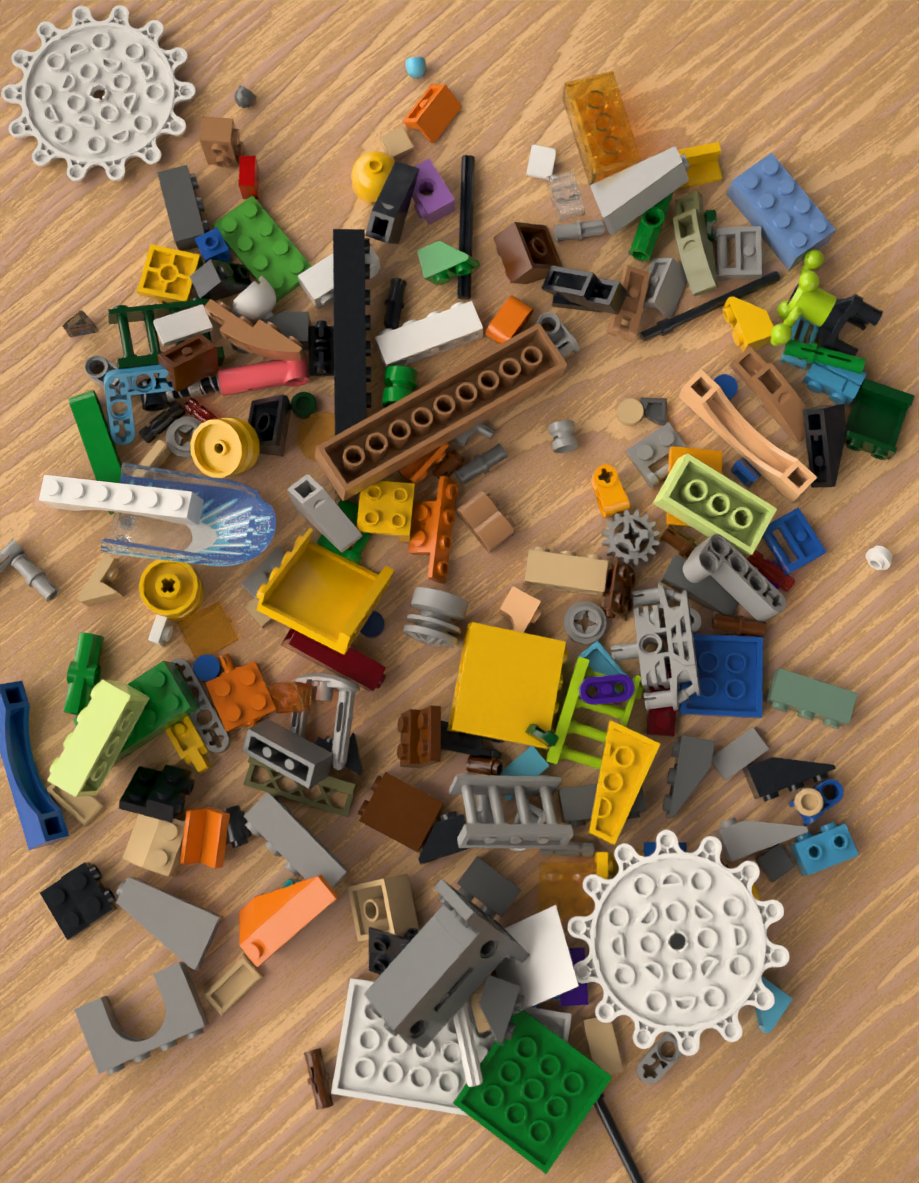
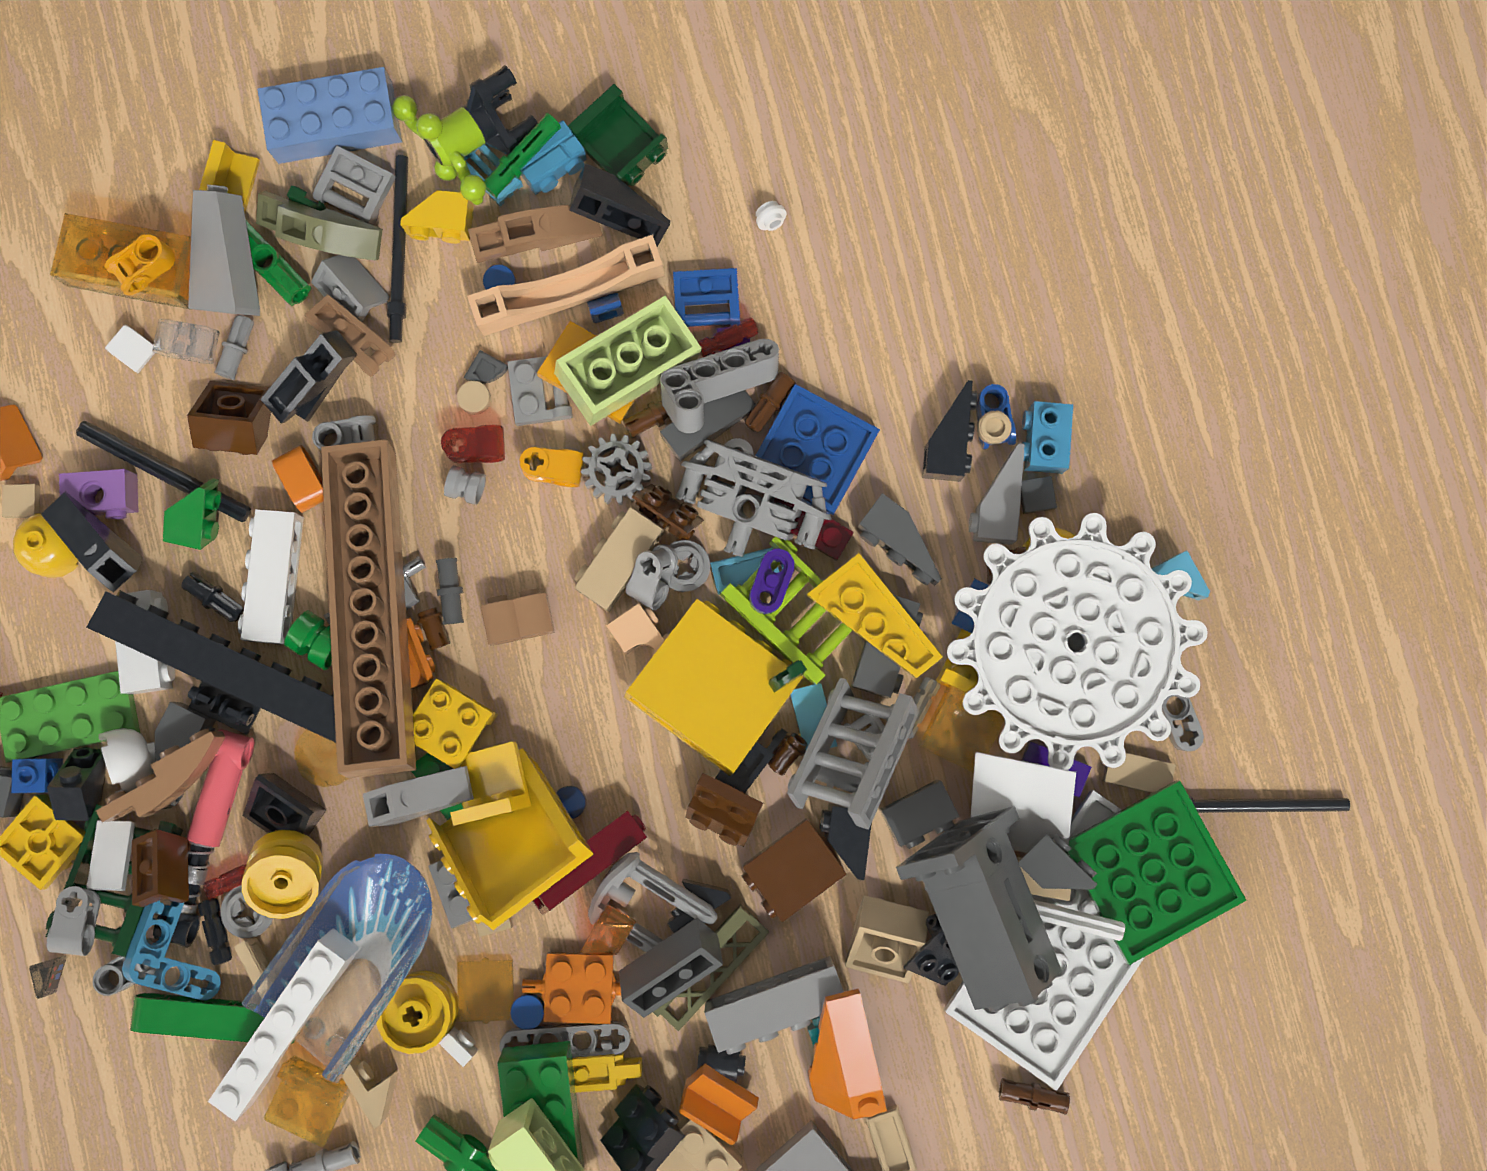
camera: 65 degrees left, 5 degrees up
(73, 544) = (306, 1101): none -> clear yellow bracket
(125, 322) = (74, 926): none -> light grey piece
(303, 405) = (278, 758): dark green tile -> none
(360, 562) = (495, 782): none -> yellow bracket
(433, 529) = (497, 681): orange bracket -> none
(435, 619) = (599, 728): light grey wheel -> none
(565, 602) = (652, 576): none -> light grey piece
(598, 433) = (479, 443): none -> clear red piece
(602, 136) = (136, 267): none -> light orange piece
(739, 754) = (905, 473): light grey tile -> none
(811, 698) = (885, 367): sand green brick -> none

